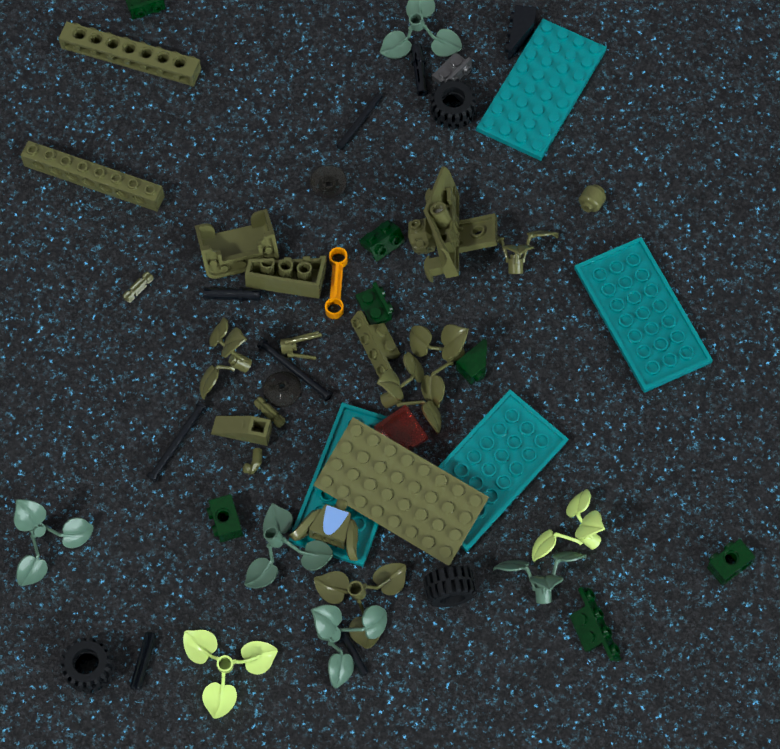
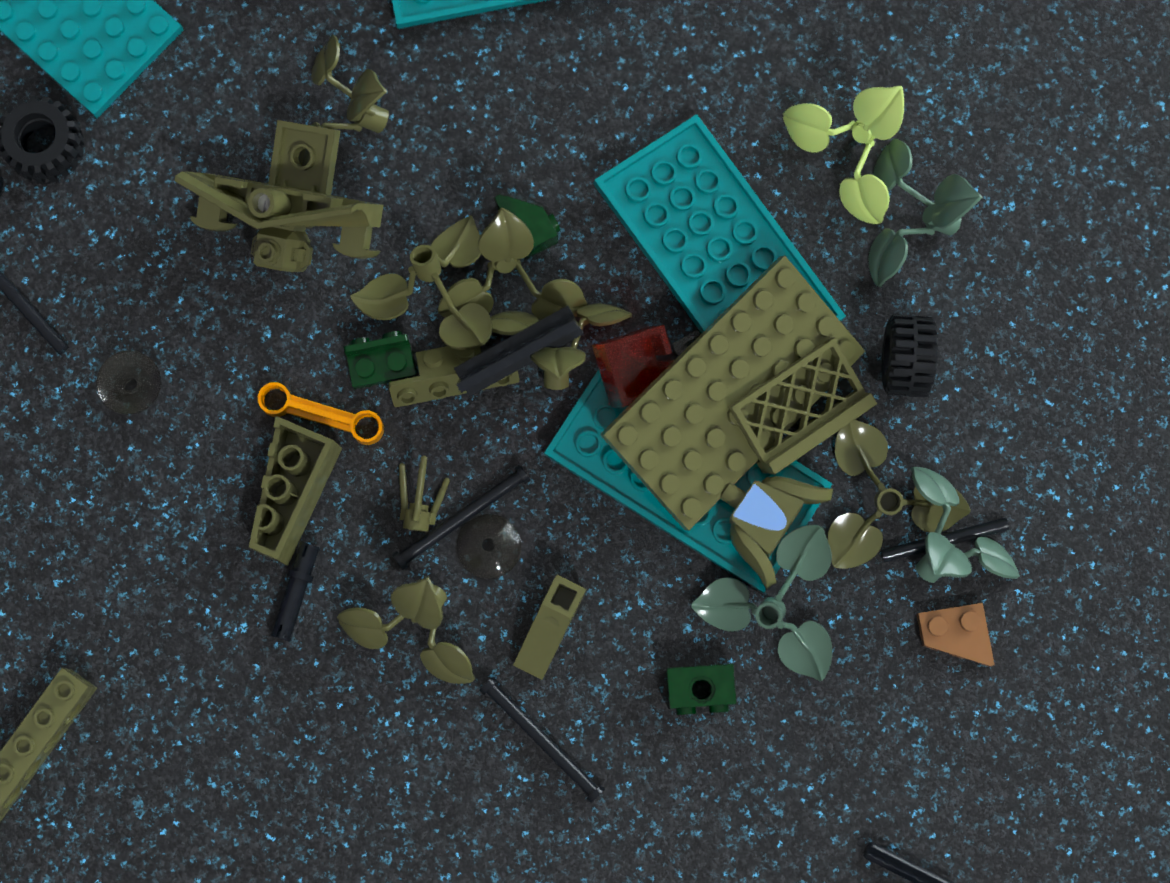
camera: 80 degrees left, 15 degrees up
(138, 287) = (237, 749): olive axle -> none
(220, 697) = (998, 757): yellowish green plant -> none
(230, 250) = (209, 561): olive windscreen -> none
(255, 464) = (616, 619): olive arm -> none
(269, 412) = (527, 575): olive axle -> none
(291, 659) = (958, 632): none -> medium nougat wing
(383, 240) = (262, 319): dark green bracket -> none
(386, 360) = (515, 351): none -> black fence
(395, 546) = (812, 432): none -> olive fence
(413, 299) = (386, 295): none -> olive plant
(592, 628) = (1010, 163): dark green bracket -> none

